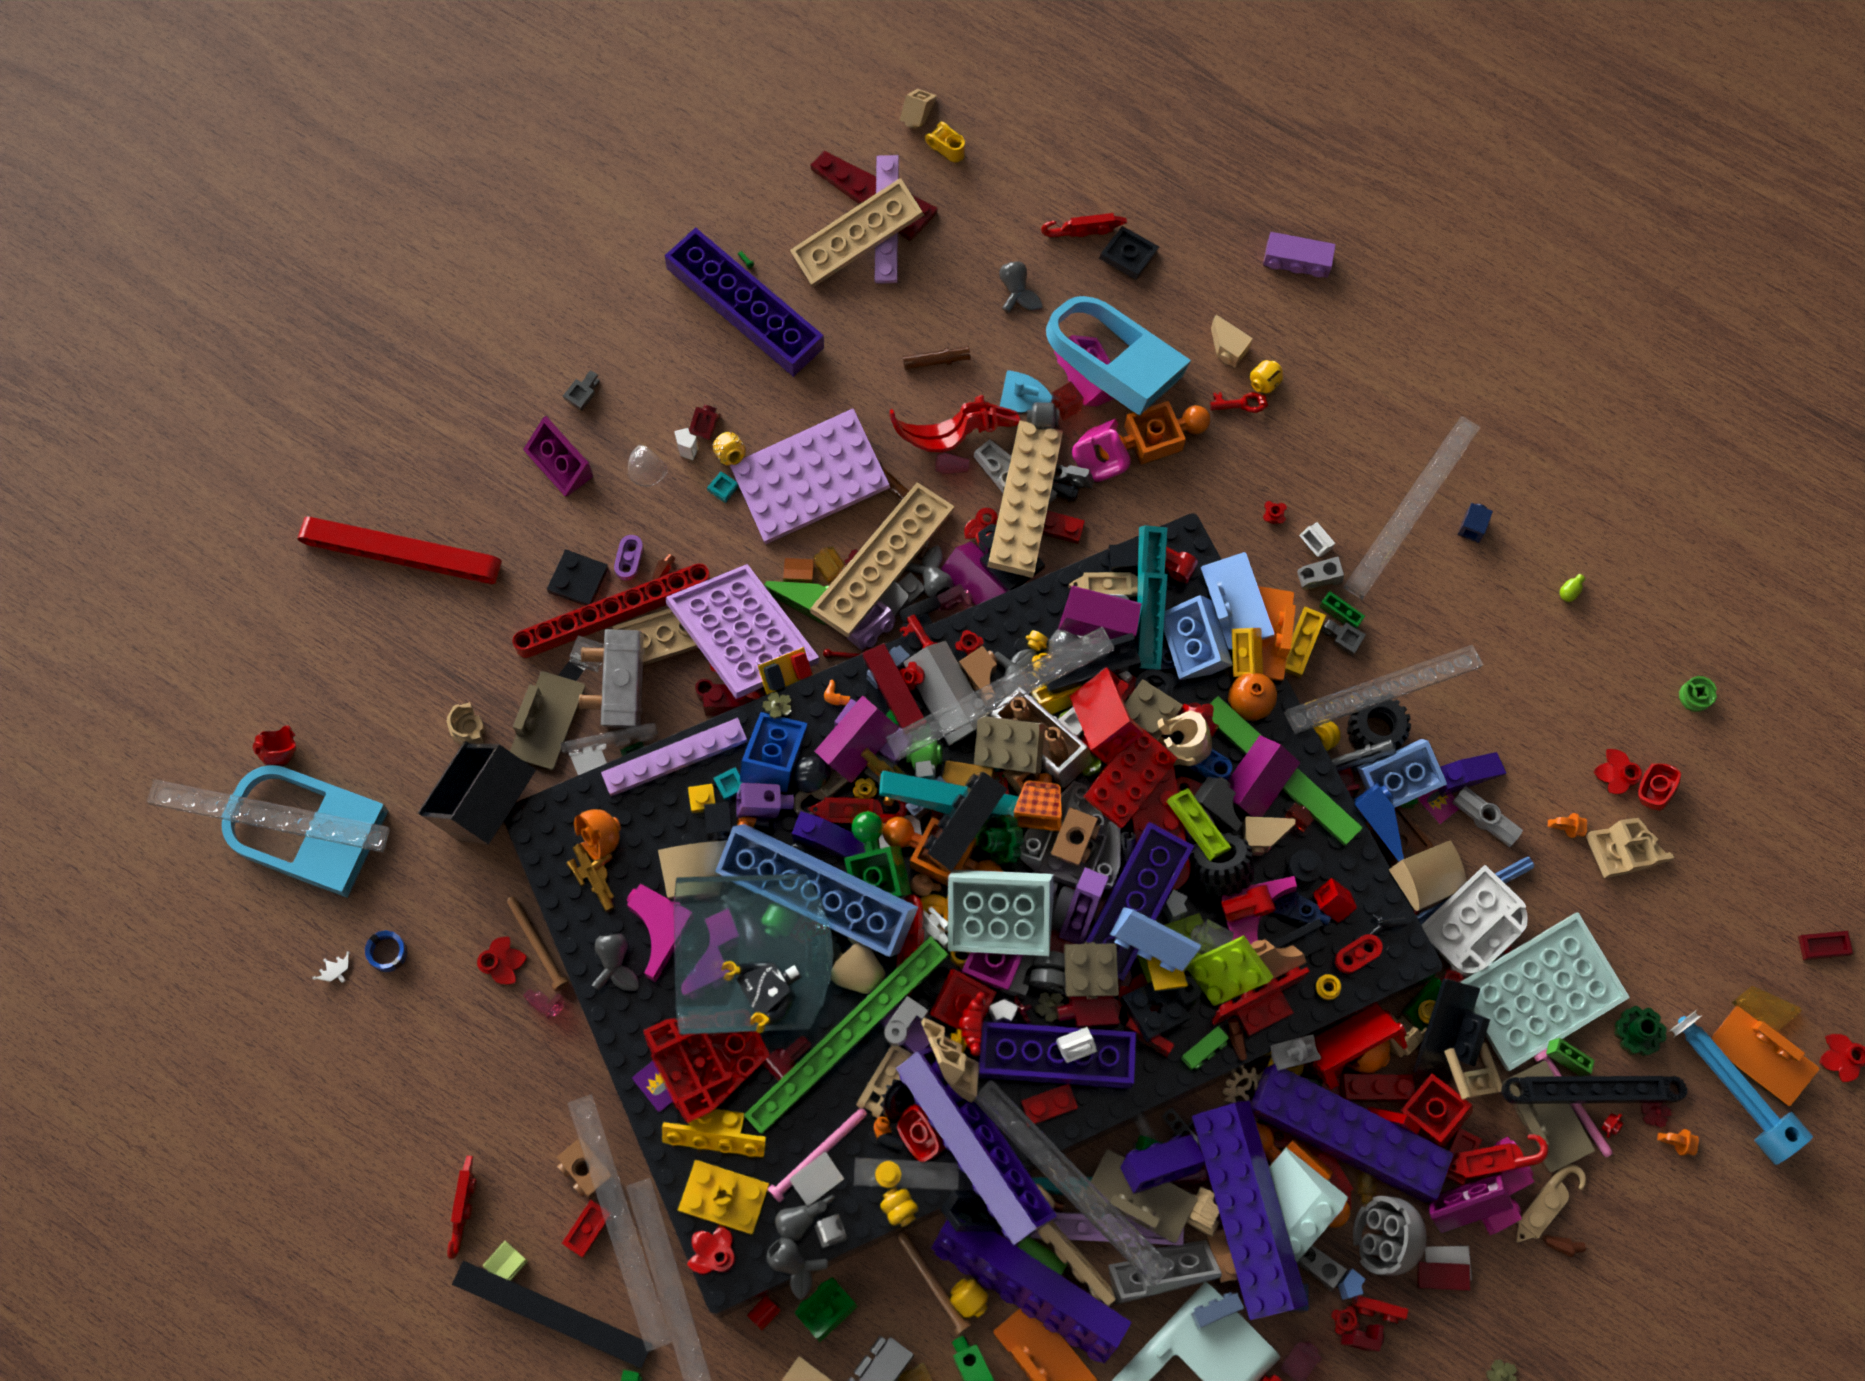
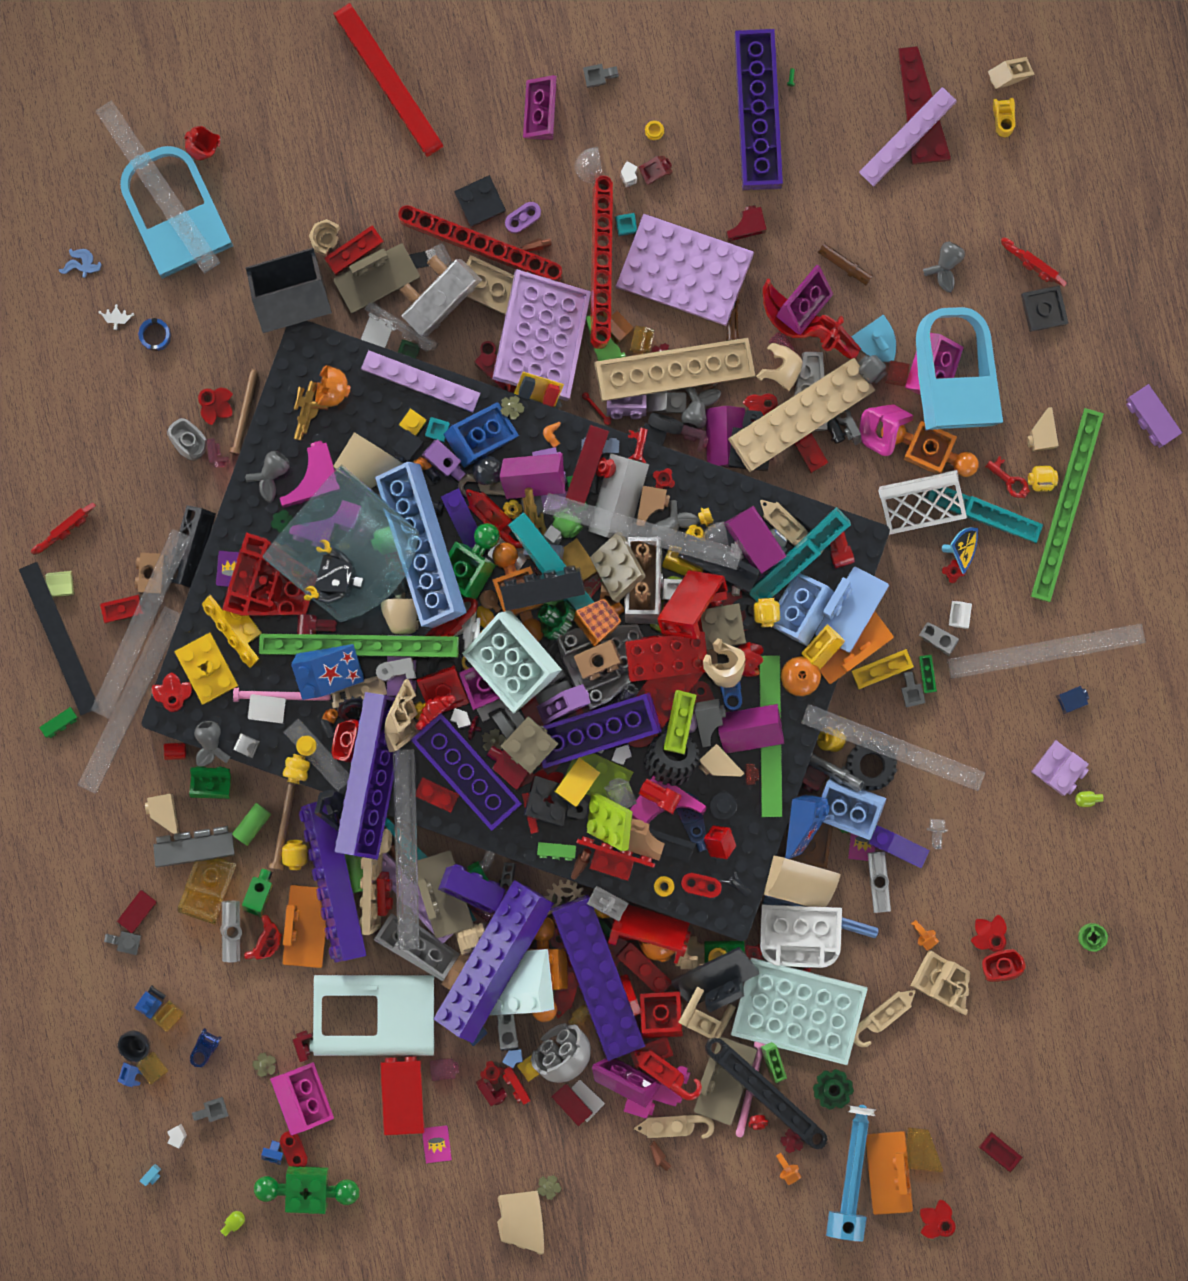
camera: 45 degrees right, 15 degrees up
(259, 944) = (87, 259): none -> medium blue piece
(504, 713) = (353, 250): none -> red plate
(504, 1014) = (187, 439): none -> light grey piece
(611, 1116) = (199, 531): none -> black fence
(659, 995) = (278, 517): none -> dark green plant
(672, 394) = (654, 130): none -> yellow plate
(680, 477) = (604, 253): none -> red beam
(729, 448) = (652, 203): yellow head -> none
(794, 1222) = (231, 721): dark grey piece -> none
(828, 394) = (750, 224): none -> dark red arch
(840, 1085) = (326, 671): none -> blue slope
(857, 232) = (876, 129): tan plate -> none
(901, 1309) = (251, 824): none -> bright green pin
(935, 410) = (806, 301): none -> magenta slope
(978, 477) = (788, 371): none -> tan piece
(1076, 1045) = (478, 778): white piece -> none
(1080, 1243) = (384, 886): none -> red plate
(1154, 940) = (580, 763): light blue slope -> none
(1171, 666) = (767, 612): none -> yellow head
(1181, 463) = (922, 485): none -> white fence
(1216, 1310) = (422, 996): sand blue piece -> none
(1245, 446) = (990, 515): none -> teal slope
(1261, 484) = (963, 547): none -> shield
(1307, 381) = (1067, 505): none -> bright green plate
(1373, 1282) = (527, 1069): none -> yellow plate
(1488, 730) = (937, 827): none -> clear piece
(1525, 585) = (1060, 768): none -> lavender plate
(1612, 921) = (885, 1014): none -> tan plate

